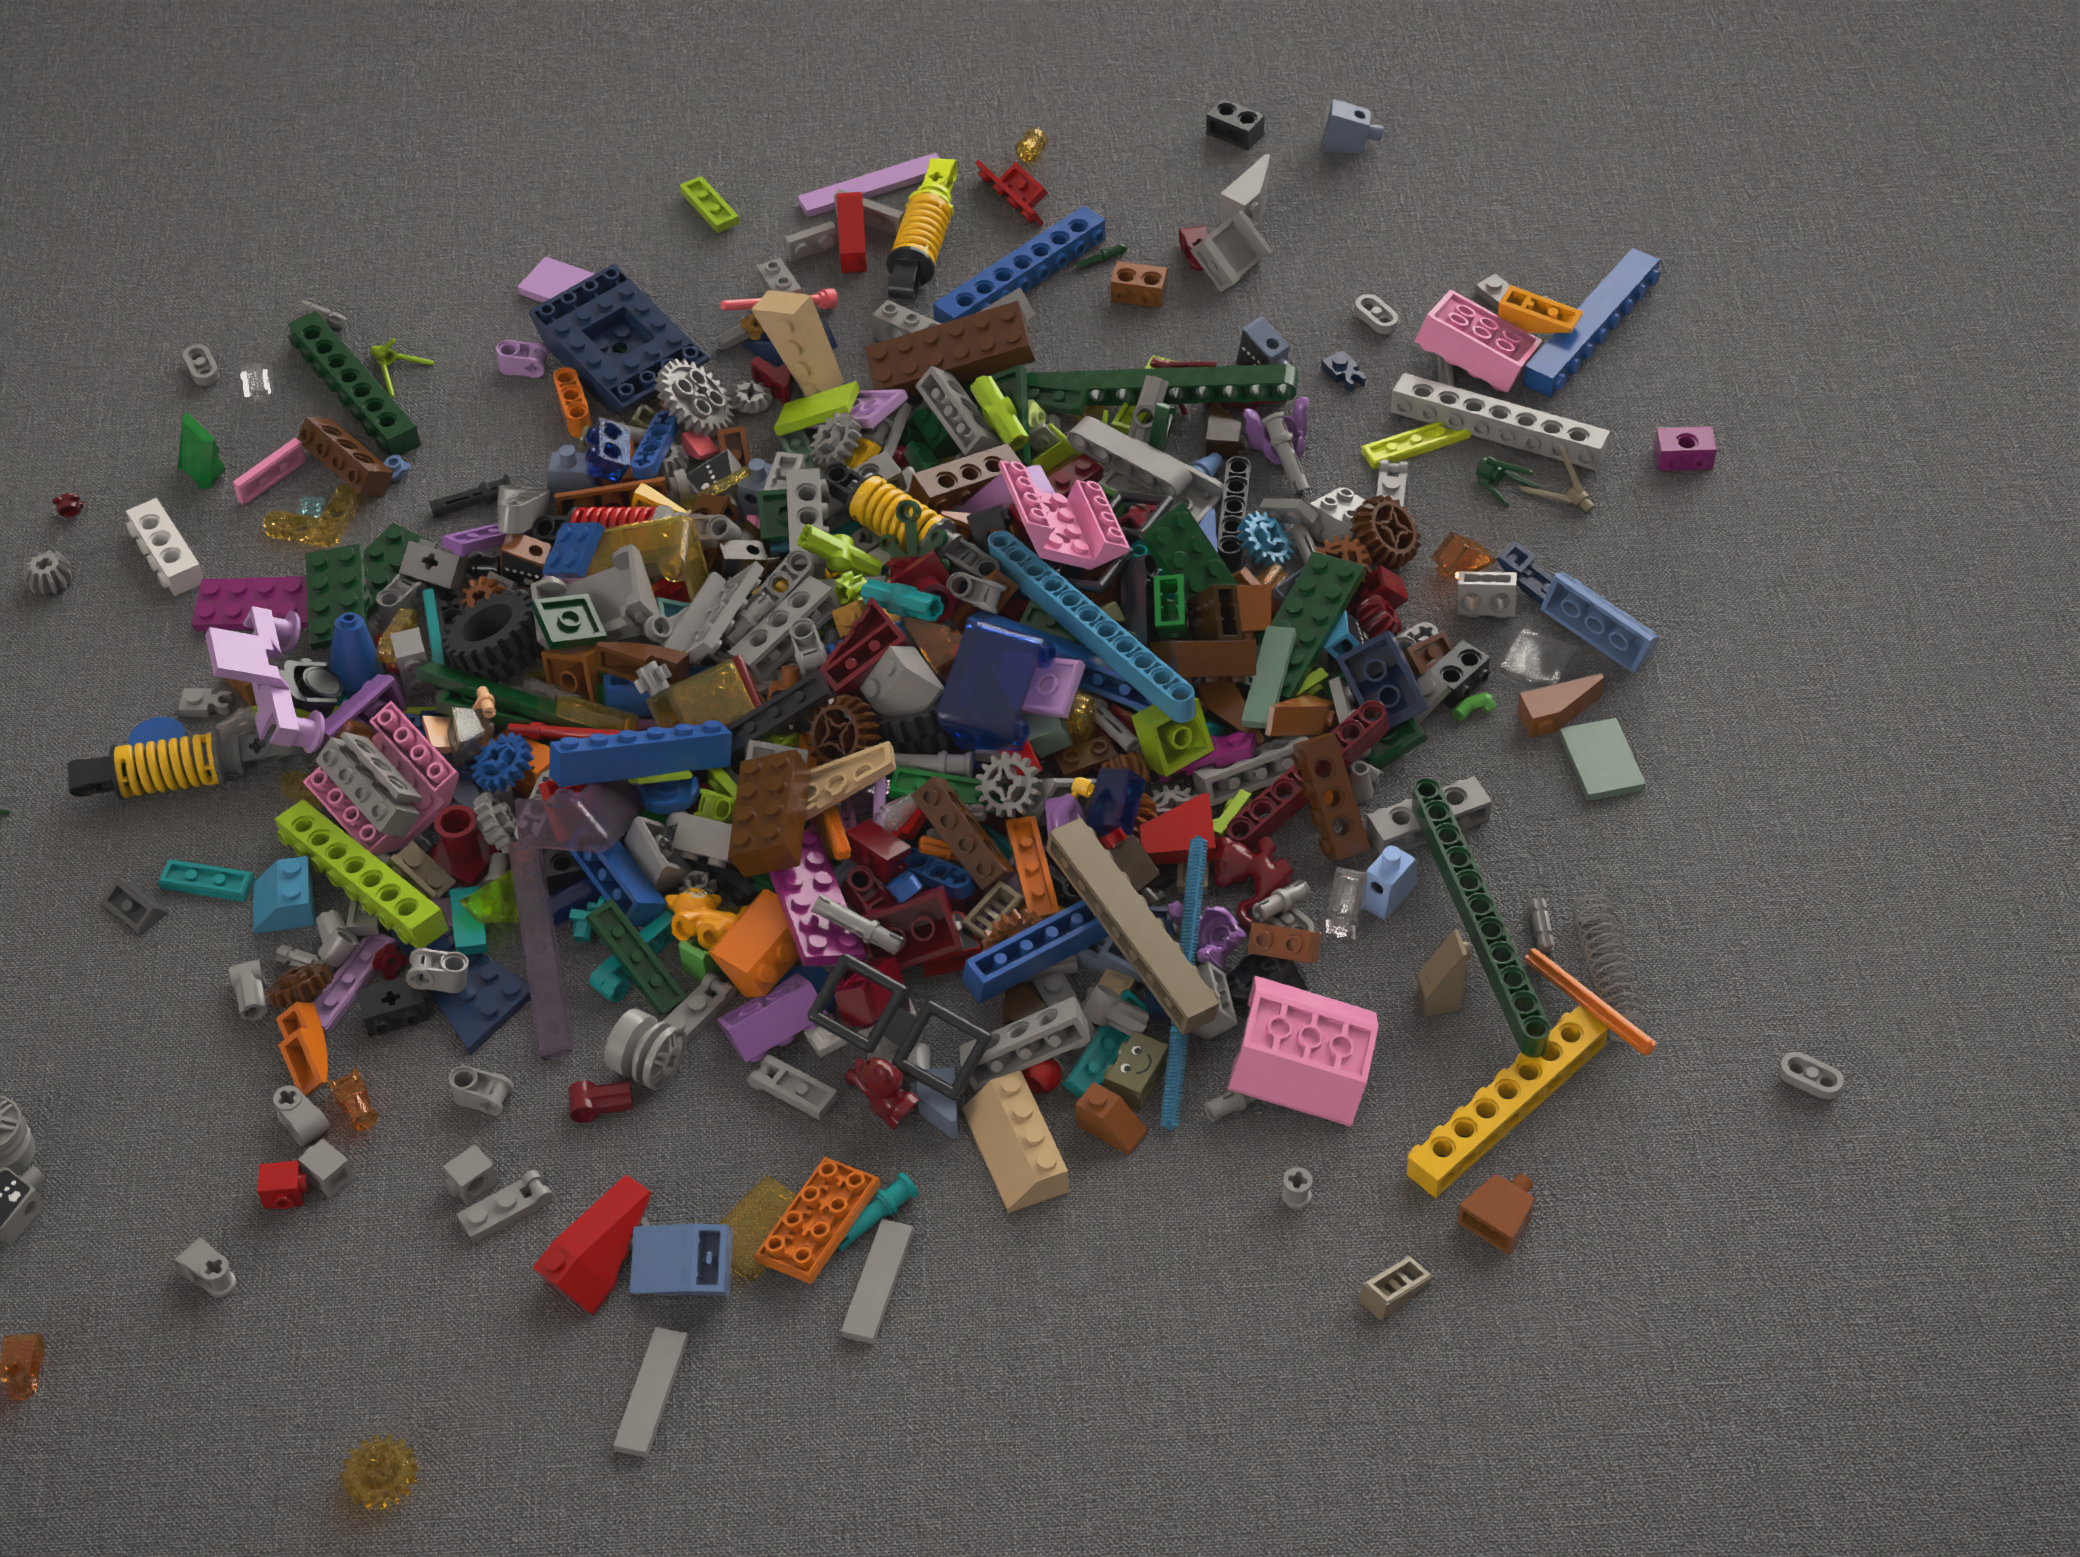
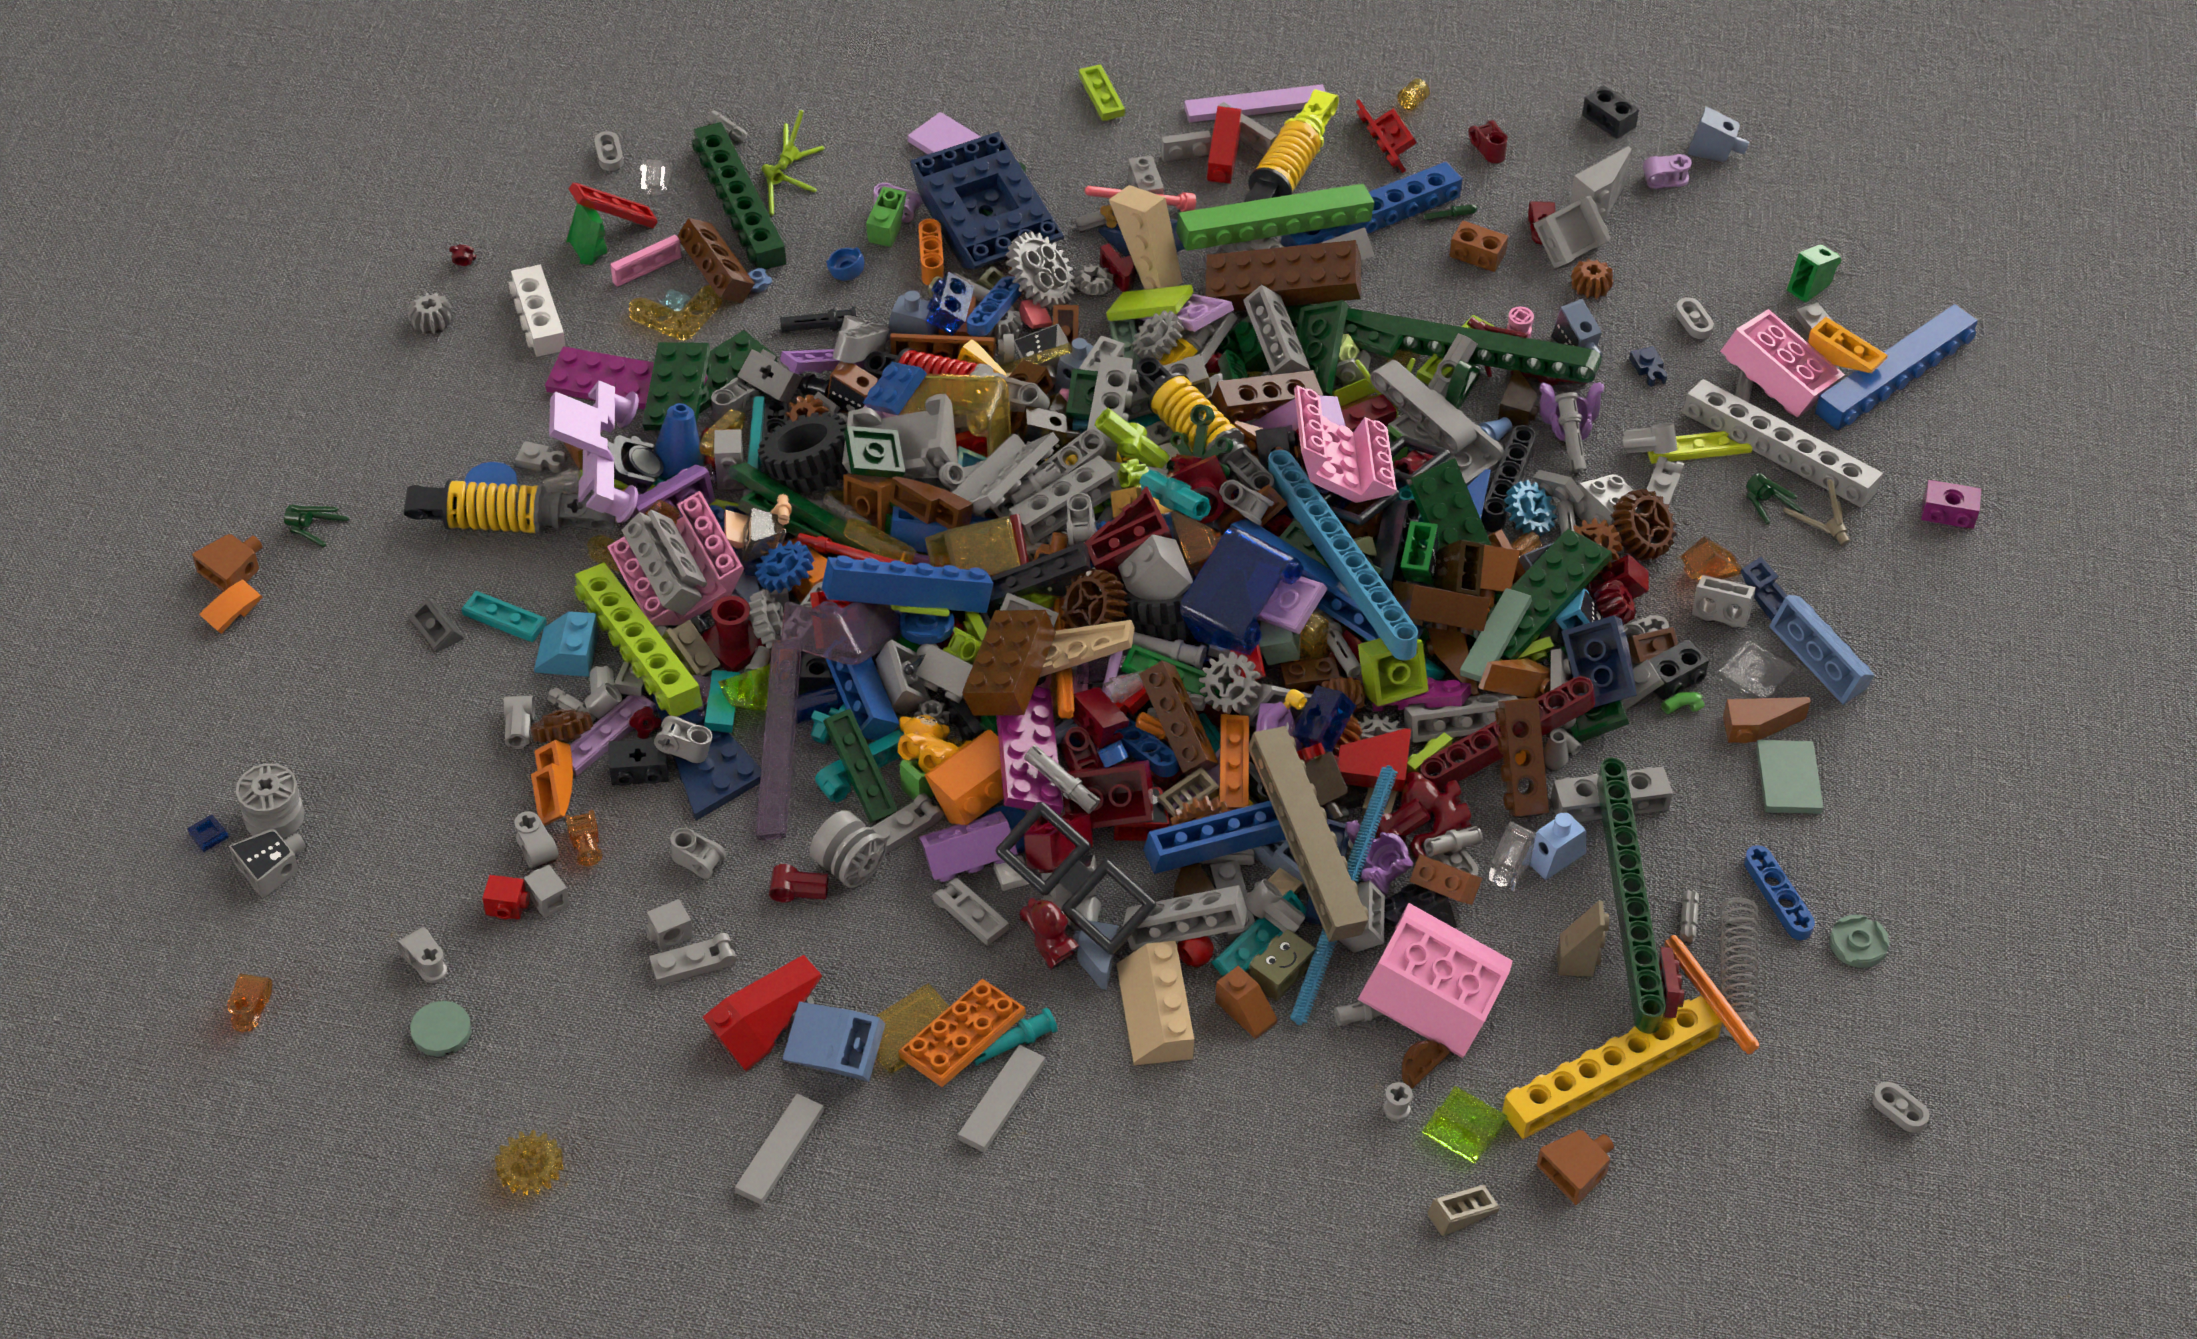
camera: 10 degrees right, 0 degrees up
(220, 419) = (613, 205): none -> red tile
(244, 1345) = (440, 1028): none -> sand green tile
(397, 328) = (790, 151): none -> lime plant
(485, 432) = (846, 264): none -> blue hair
(516, 375) = (886, 217): none -> bright green slope
(652, 678) = (935, 519): light grey gear -> none
(924, 295) = (1274, 217): none -> bright green brick
(999, 412) = (1313, 340): lime piece -> none
(1121, 177) = (1489, 141): none -> dark red piece
(1202, 349) = (1521, 320): none -> bright pink wheel
(1225, 889) = (1403, 820): none -> dark red piece
(1263, 294) = (1592, 278): none -> dark orange gear
(1307, 173) = (1666, 172): none -> lavender piece
(1309, 1139) = (1421, 1060): none -> reddish brown plate
(1373, 1196) = (1465, 1124): none -> clear neon green slope
(1375, 442) = (1657, 438): none -> light grey piece
(1483, 236) = (1813, 272): none -> green torso
(1547, 997) = (1670, 982): none -> dark red plate
(1628, 878) = (1782, 891): none -> blue beam
(1719, 913) = (1859, 941): none -> sand green tile

